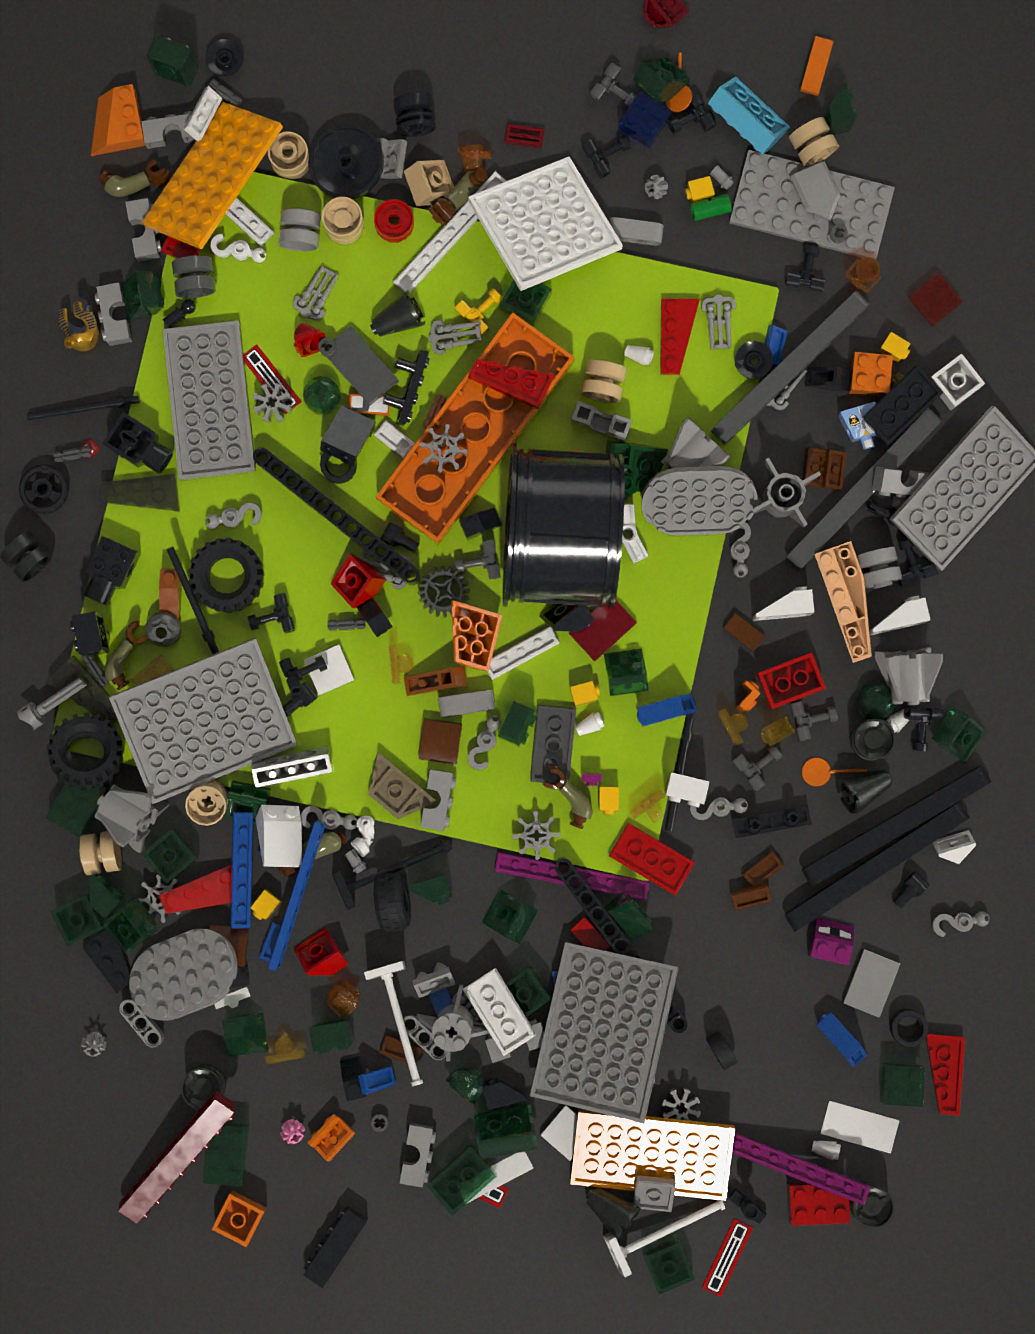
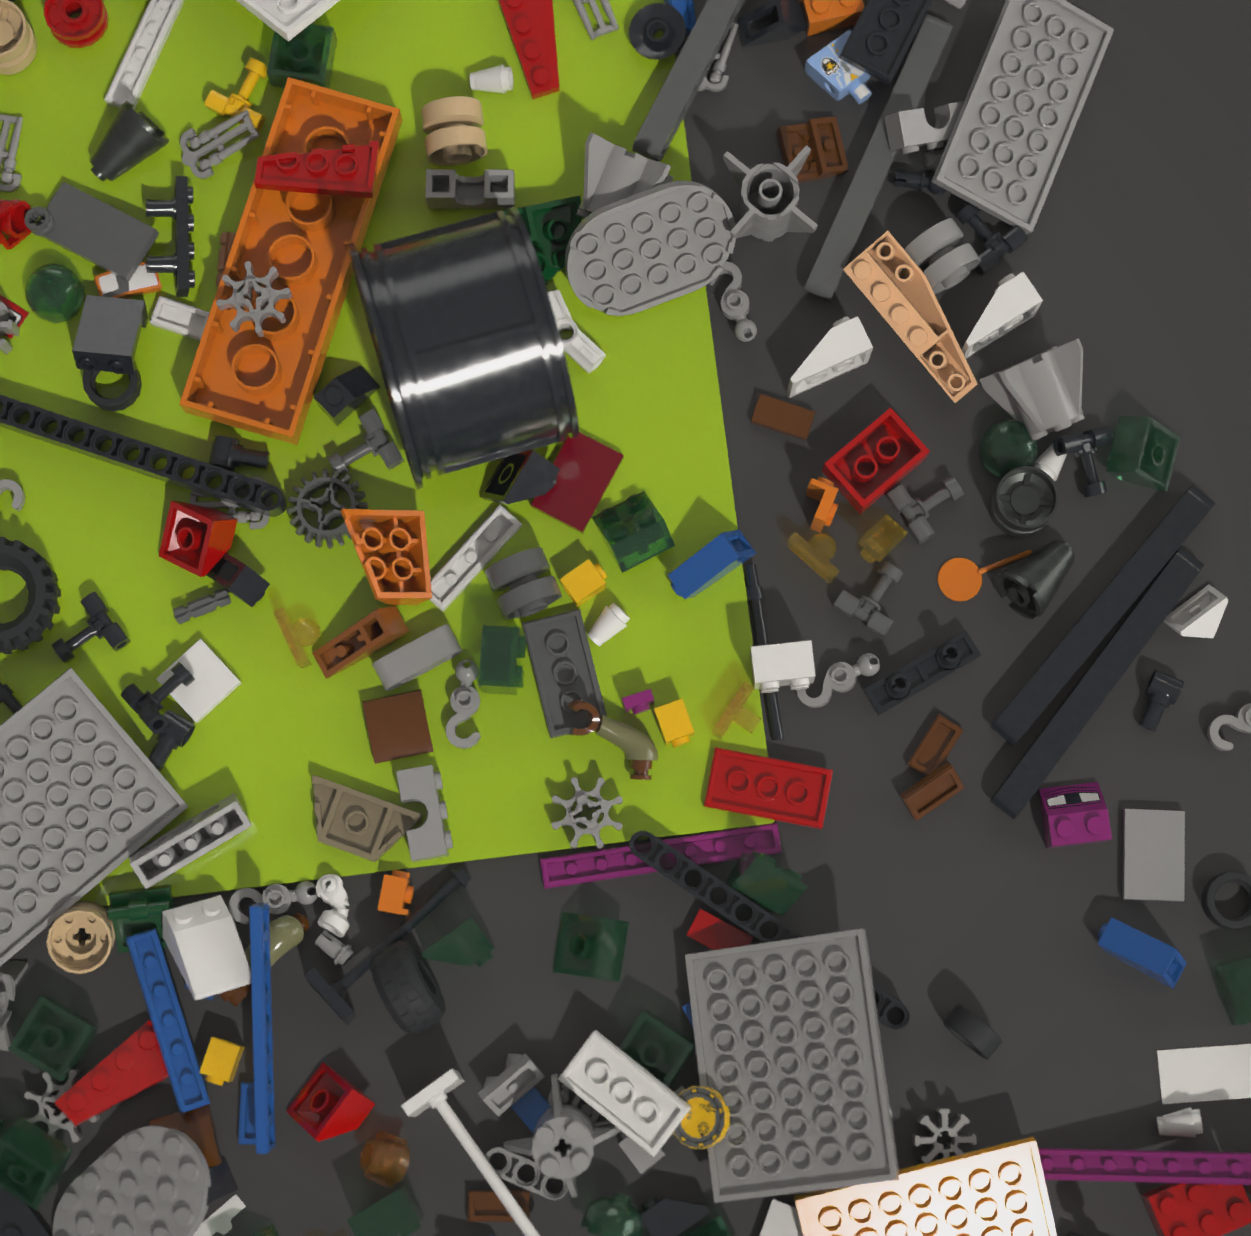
camera: 20 degrees left, 5 degrees down
(404, 842) = (396, 893): none -> orange brick
(542, 1046) = (705, 1121): none -> tile
(547, 687) = (526, 592): none -> dark grey wheel

